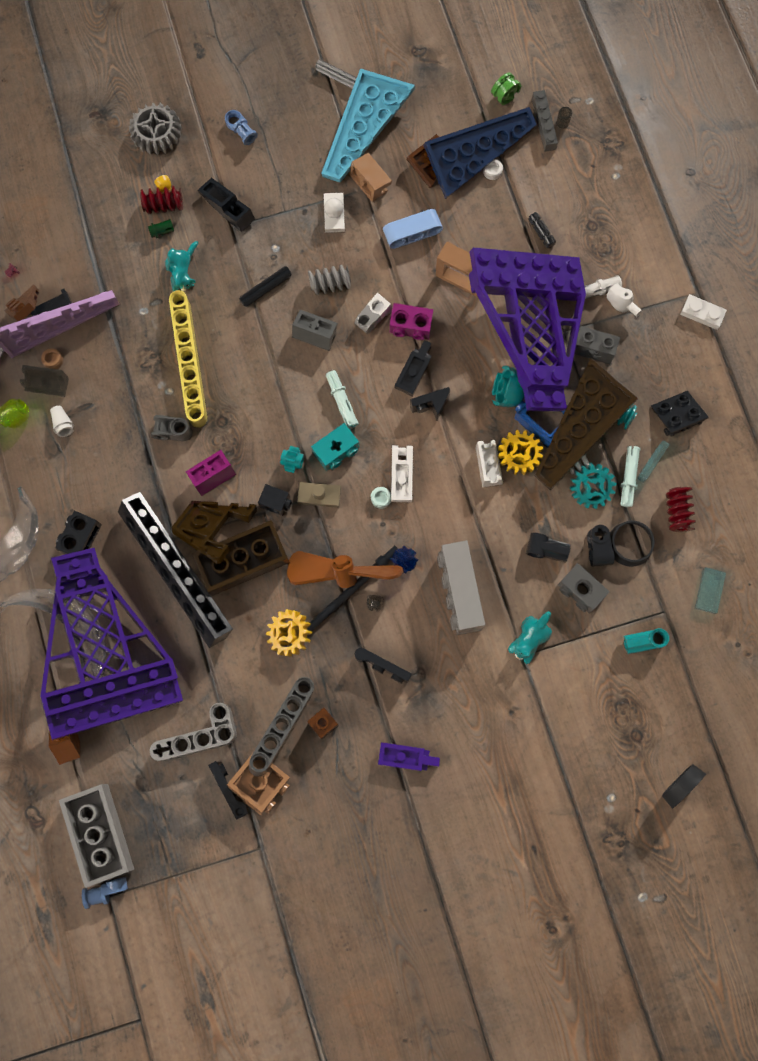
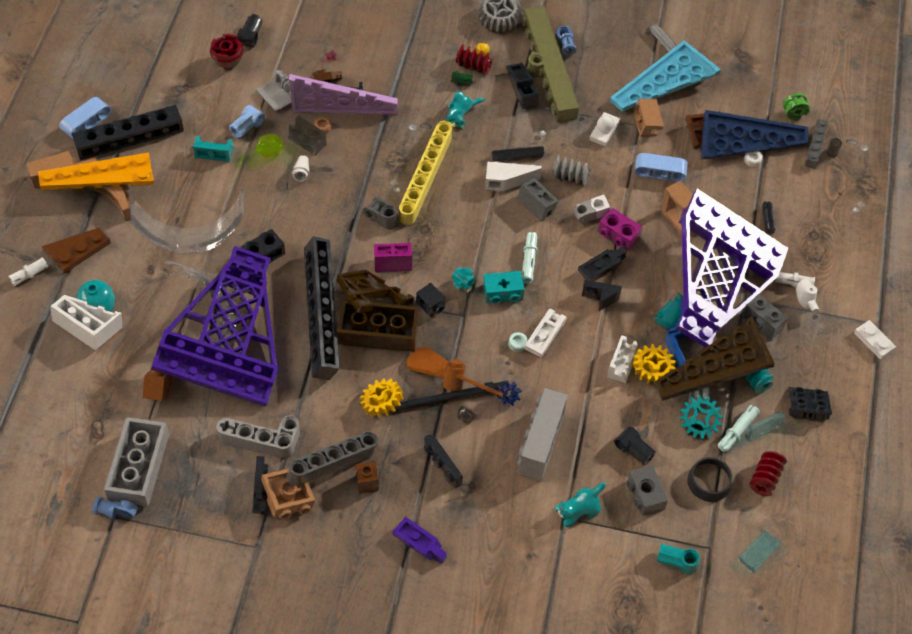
camera: 25 degrees right, 20 degrees down
(238, 165) = (548, 63): none -> olive hinge
(269, 320) = (508, 176): none -> white slope
(319, 494) = (469, 315): dark tan tile -> none
(600, 549) = (680, 467): black piece -> none

